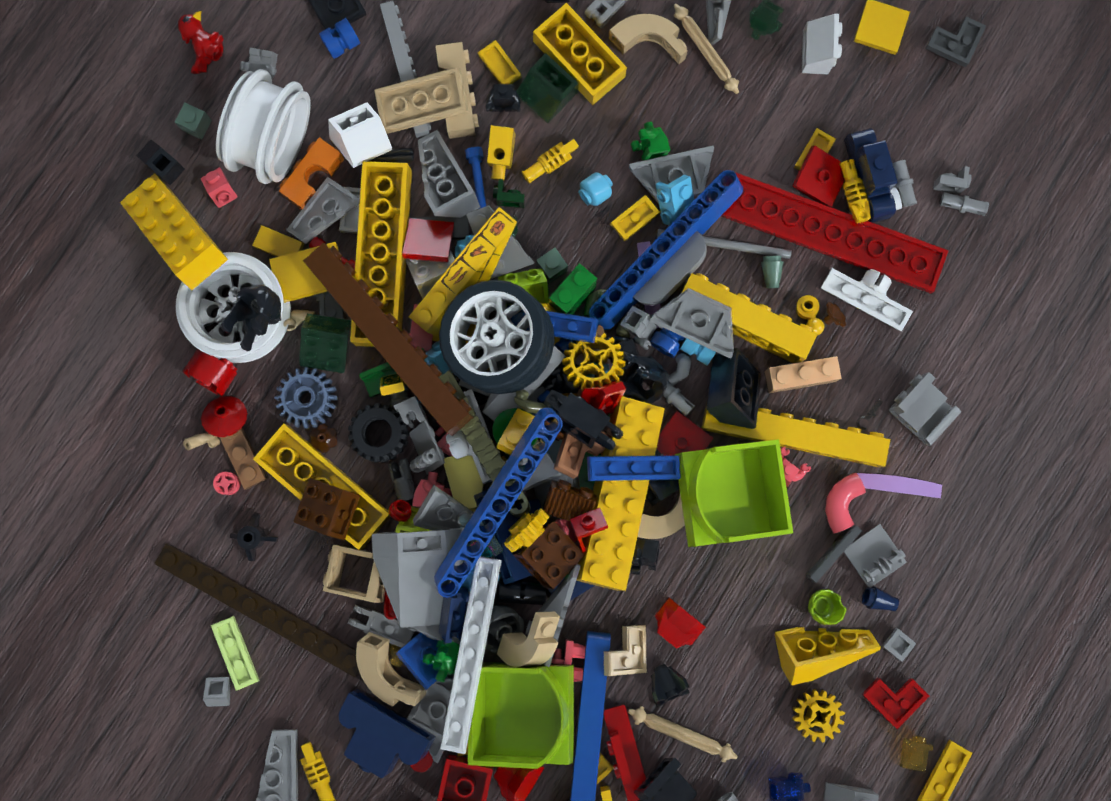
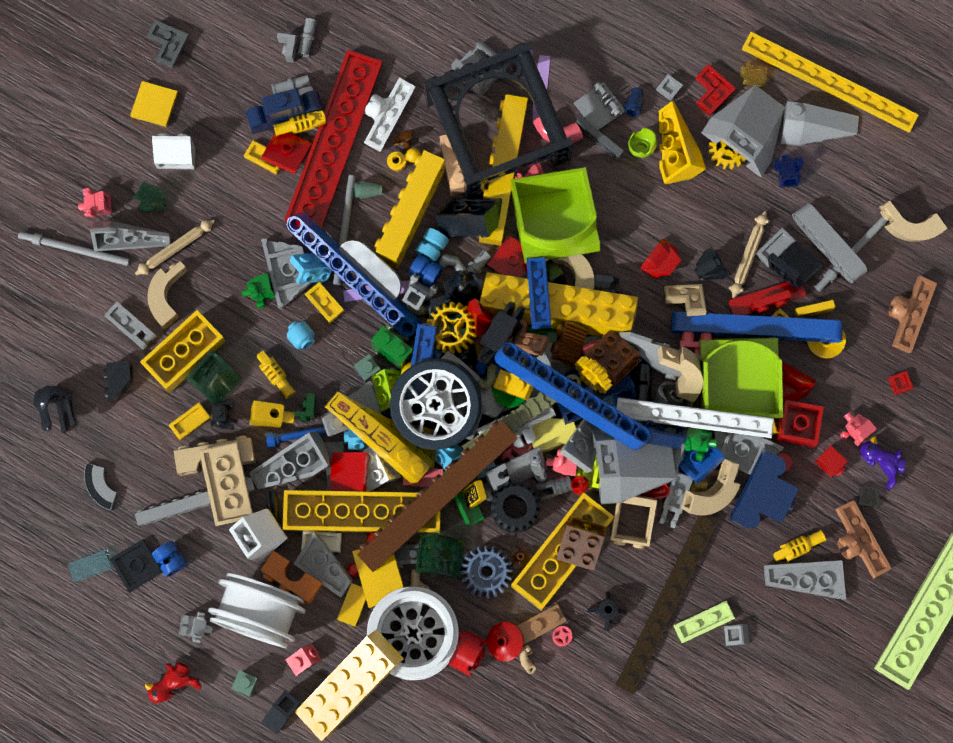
camera: 90 degrees left, 5 degrees down
(255, 315) = (422, 606): black piece -> none
(588, 524) = (587, 327): red bracket -> none
(692, 768) = (777, 244): none -> light grey tile
(699, 321) = (415, 244): light grey wing -> none
(845, 743) = (749, 127): none -> light grey wedge
(934, 460) = (522, 60): none -> black arch

